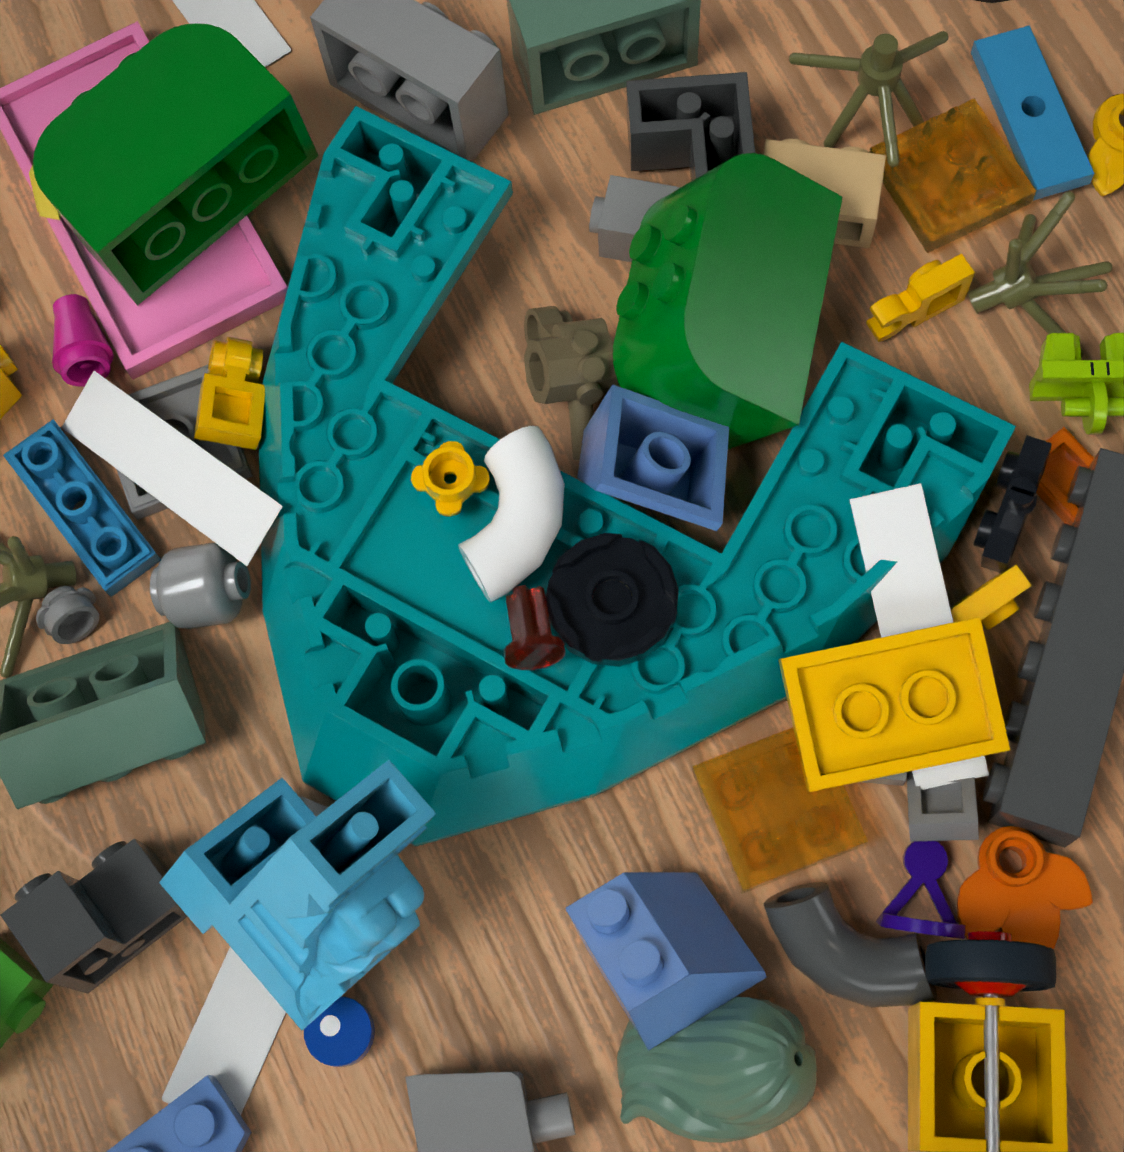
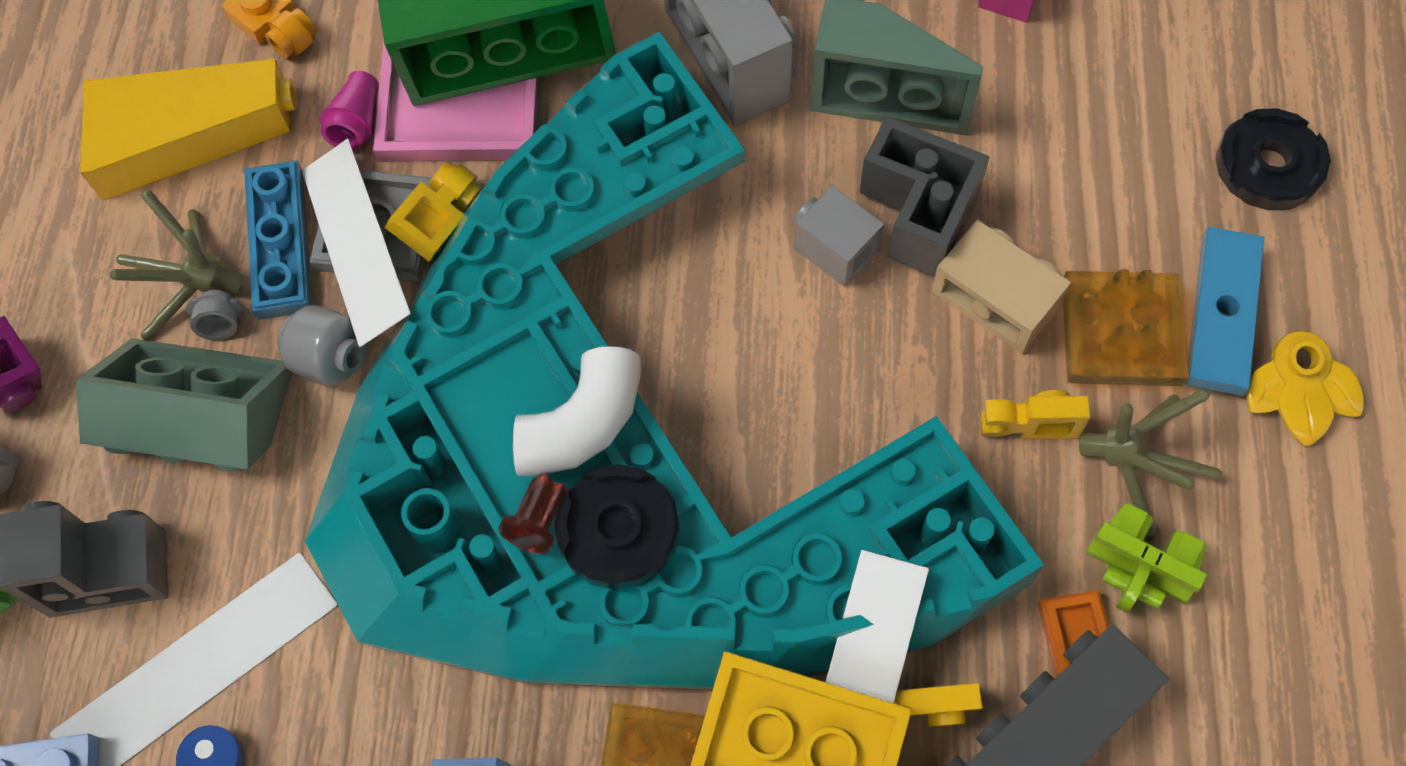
camera: 25 degrees right, 5 degrees down
(306, 893) = (238, 626): medium azure brick -> none
(445, 460) = (543, 344): yellow plate -> none
(568, 364) = (717, 324): dark tan piece -> none
(656, 457) = (727, 433): medium blue slope -> none
(729, 296) = (860, 332): green brick -> none
(878, 75) = (1101, 214): olive plant -> none
(1020, 478) = (1024, 619): black plate -> none

